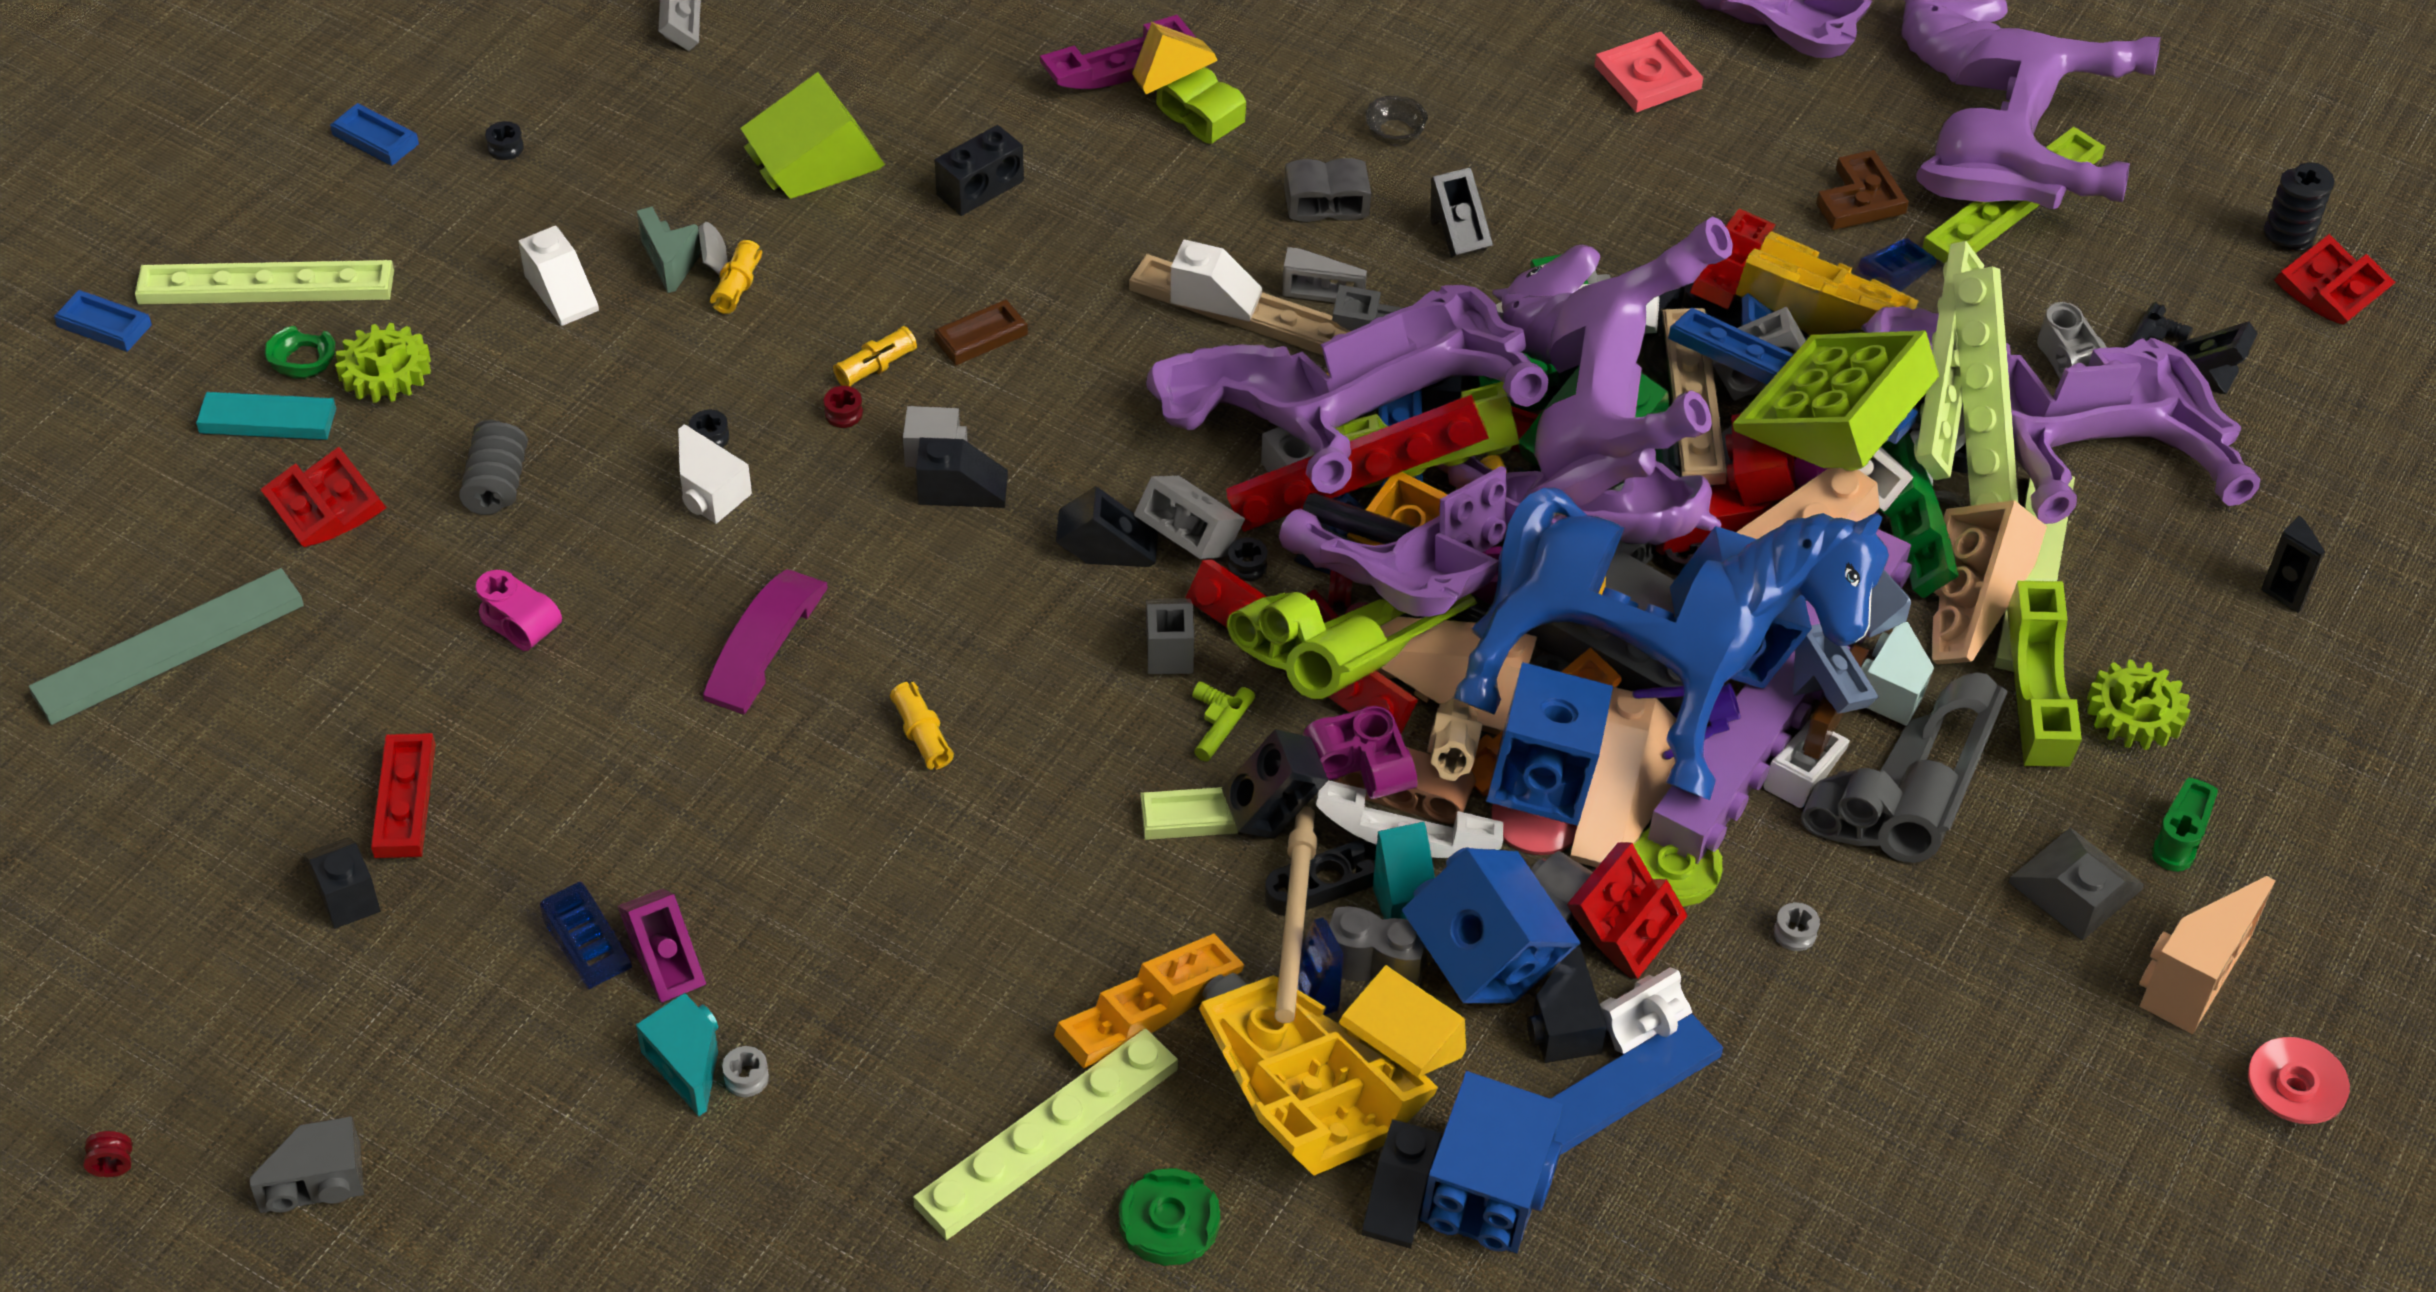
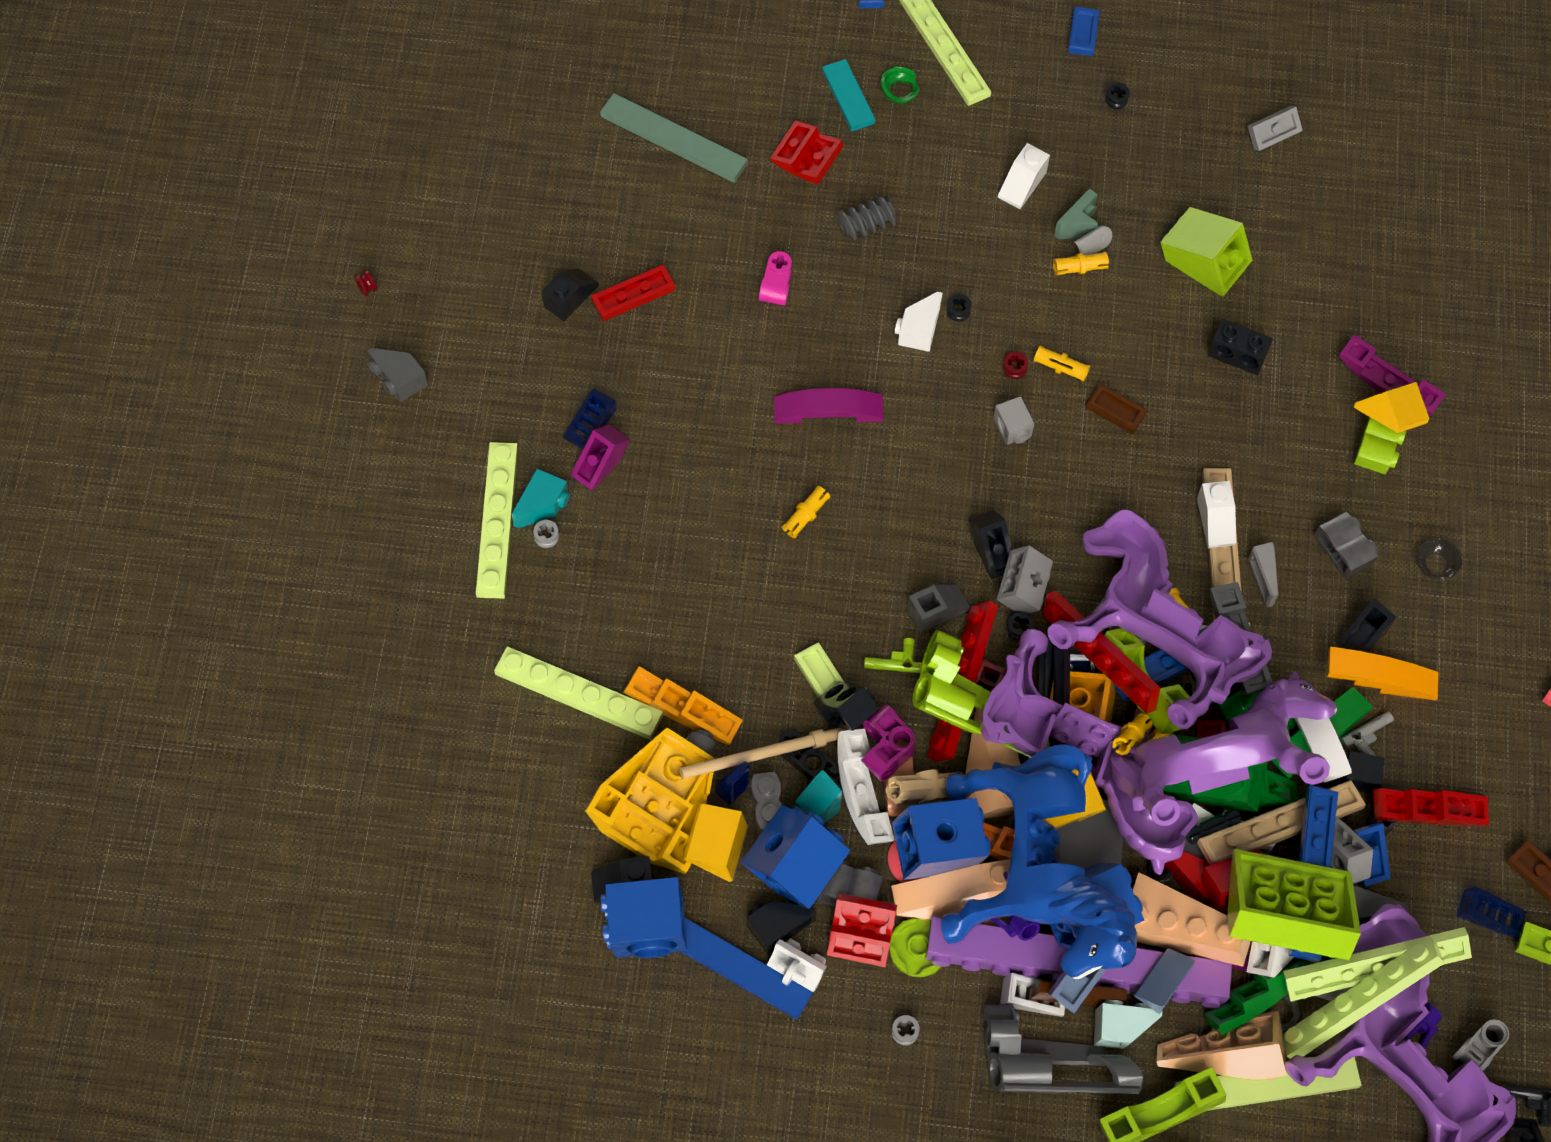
camera: 65 degrees right, 15 degrees up
(383, 362) = (912, 127): lime gear -> none
(677, 1131) = (497, 520): none -> yellowish green plate
(958, 475) = (993, 448): black slope -> none
(1169, 1217) = (555, 774): green tile -> none
(1514, 464) = (1132, 734): none -> yellow pin
(1524, 229) = (1382, 672): none -> light orange slope
(1816, 292) = (1431, 867): yellow wedge -> none

